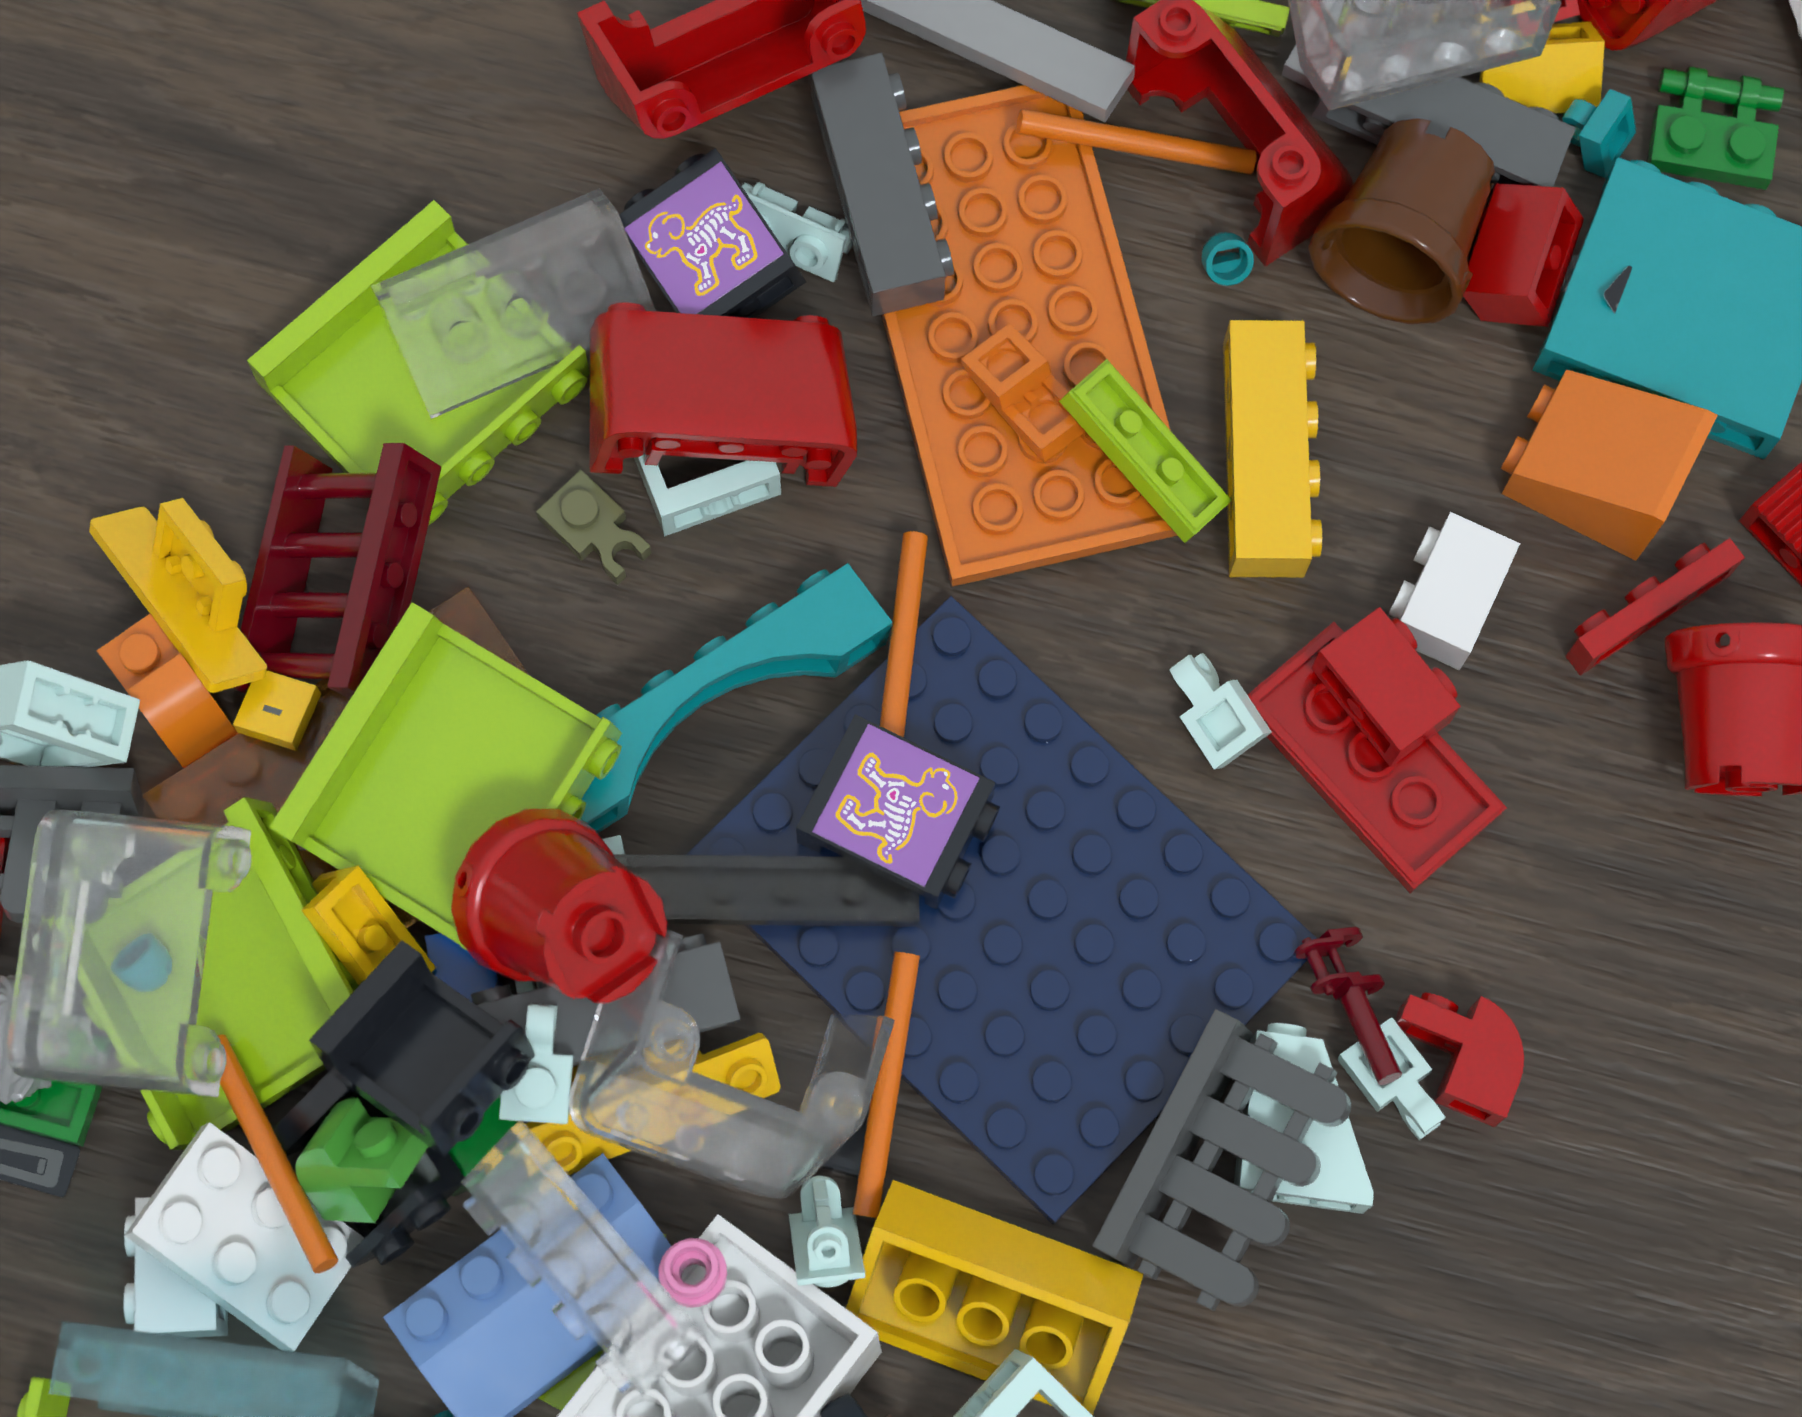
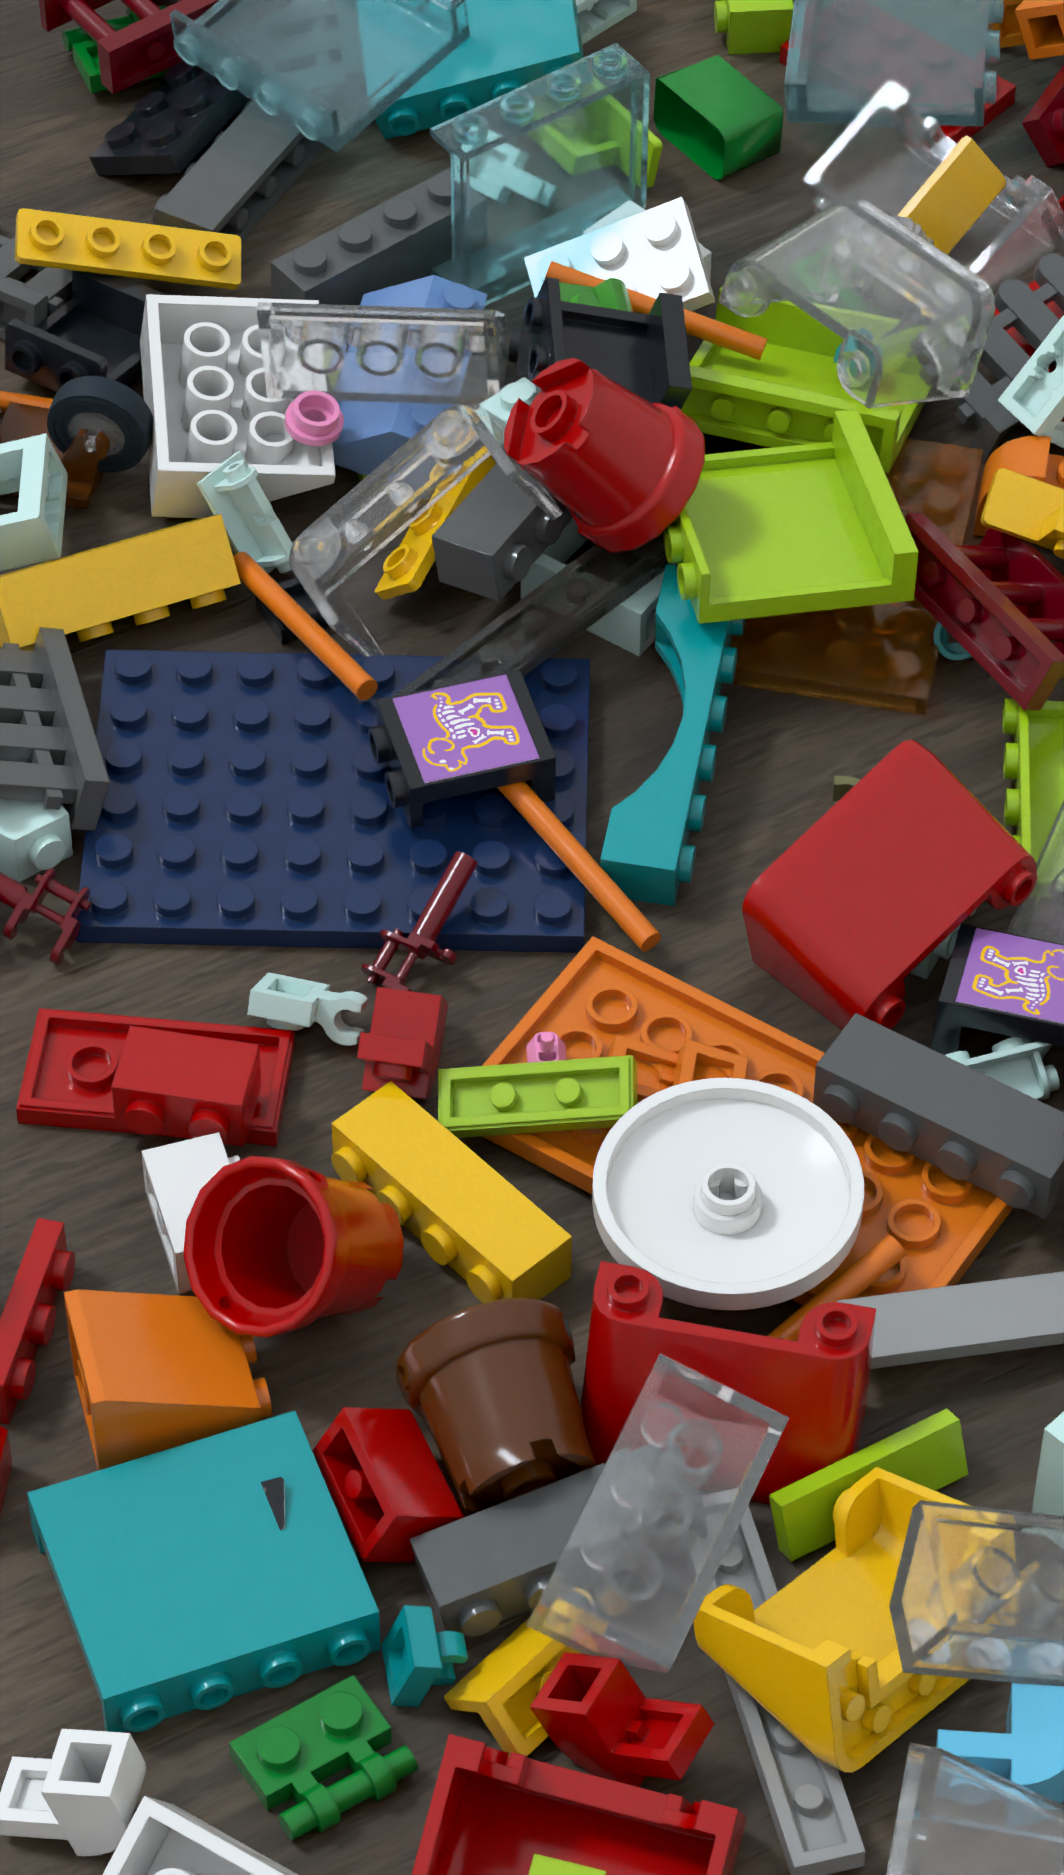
camera: 140 degrees right, 25 degrees down
(277, 710) = (959, 521): yellow tile -> none
(356, 921) = (743, 419): yellow panel -> none
(1080, 686) = (426, 930): none -> dark red piece
(1094, 495) = (546, 1047): none -> bright pink rock
(1103, 241) = (728, 1193): none -> white dish
(1185, 601) = (403, 1041): none -> red brick
(1455, 440) = (287, 1246): none -> red piece

